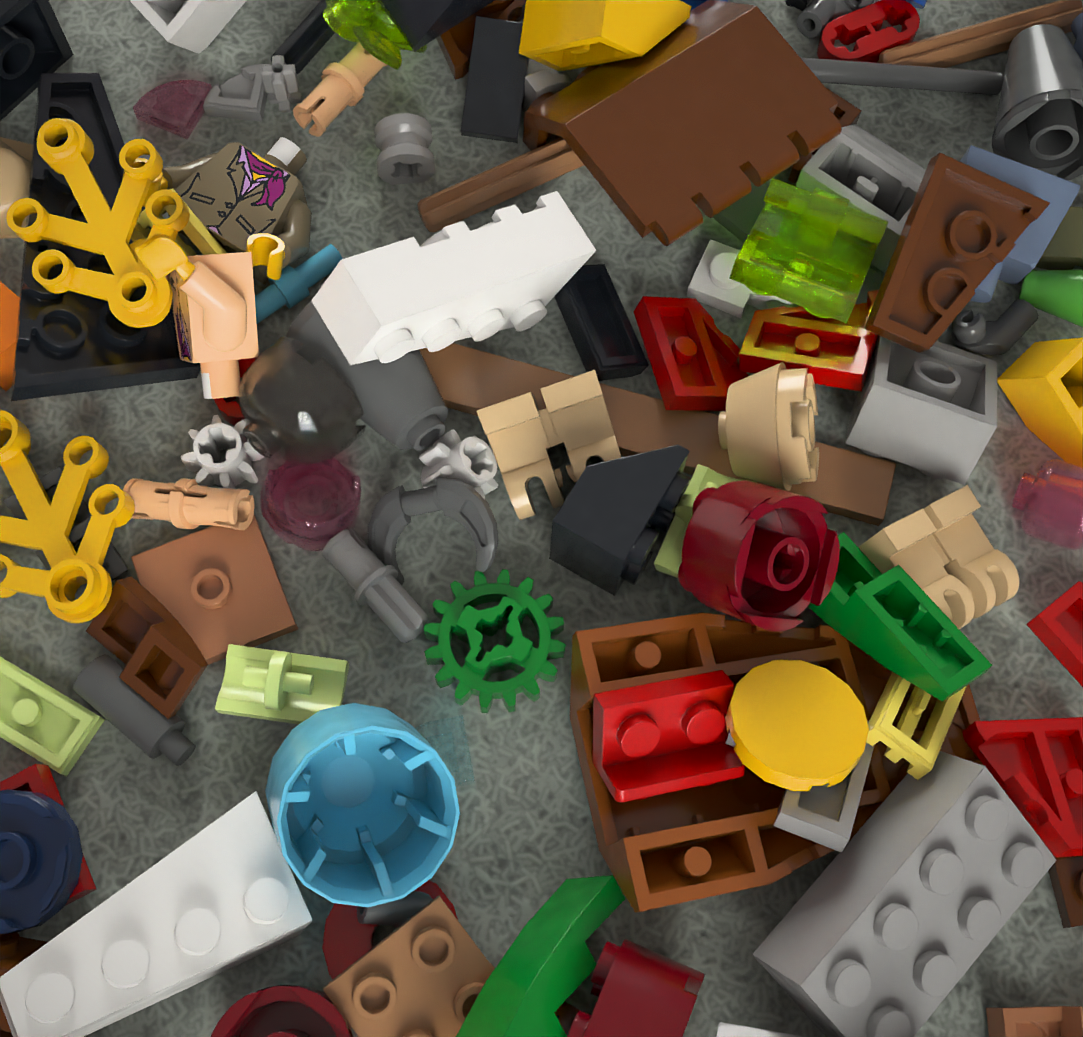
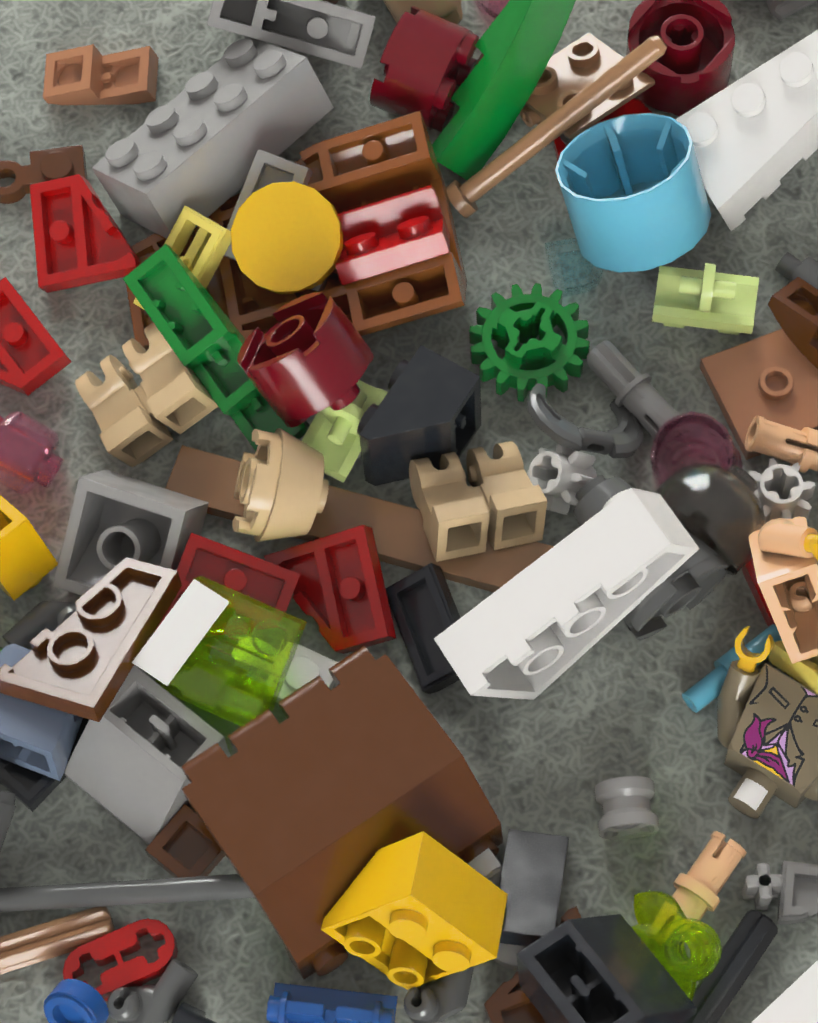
camera: 170 degrees left, 5 degrees down
(497, 184) = (546, 770): medium nougat axle -> none
(575, 848) = (464, 195): none -> medium nougat bar
(860, 249) = (180, 632): none -> white sticker

